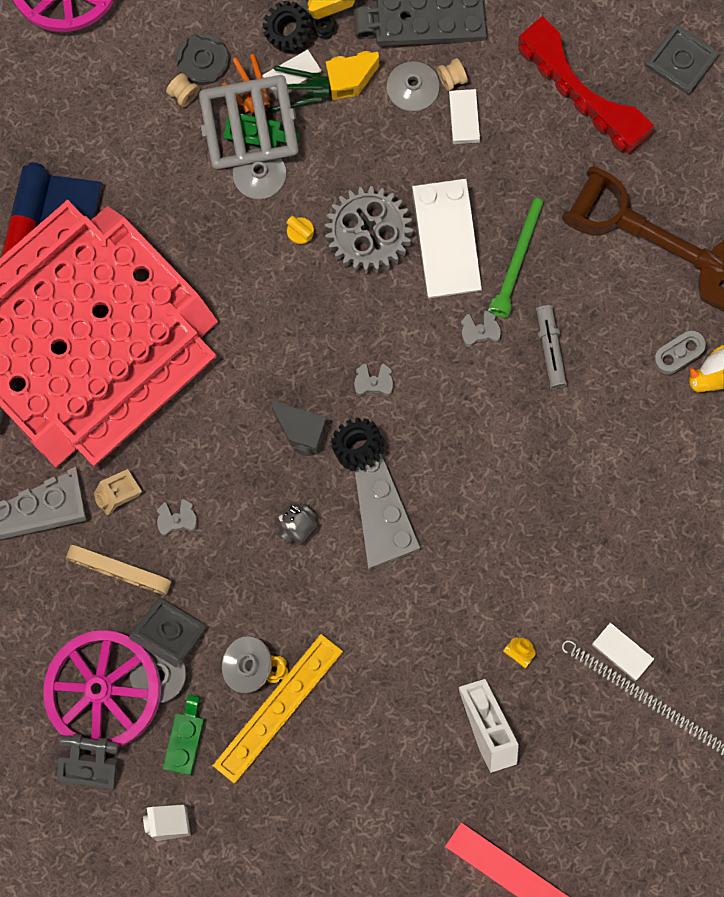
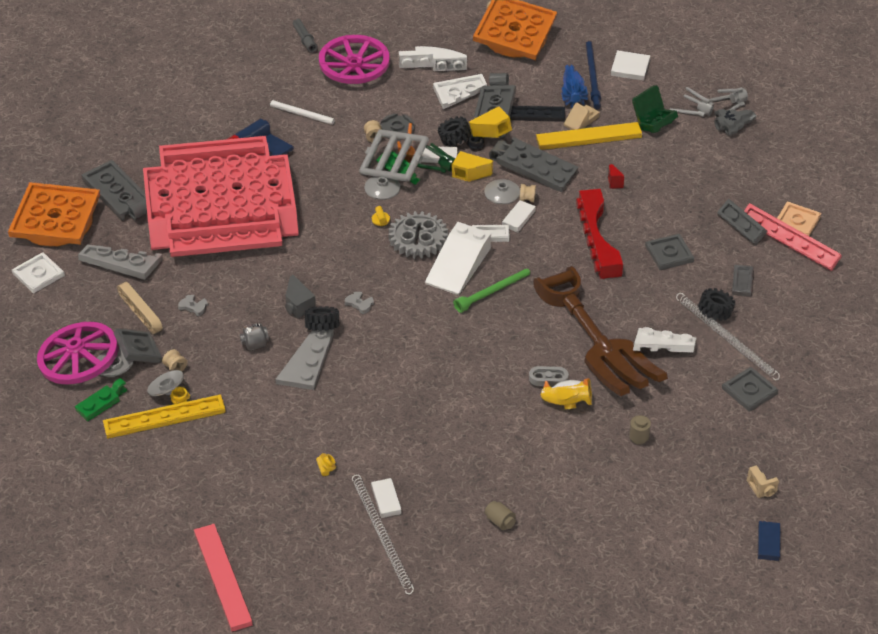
camera: 30 degrees right, 30 degrees down
(61, 111) = (315, 116): none -> white bar
(84, 768) = (33, 382): dark grey plate -> none
(116, 491) = (173, 273): tan bracket -> none
(167, 822) = (51, 425): white slope -> none
(229, 624) = (174, 360): none -> tan wheel
(451, 165) = (499, 233): none -> white tile
(479, 333) = (439, 311): light grey piece -> none
(489, 726) = (272, 487): white slope -> none
(545, 316) = (477, 331): light grey pin -> none

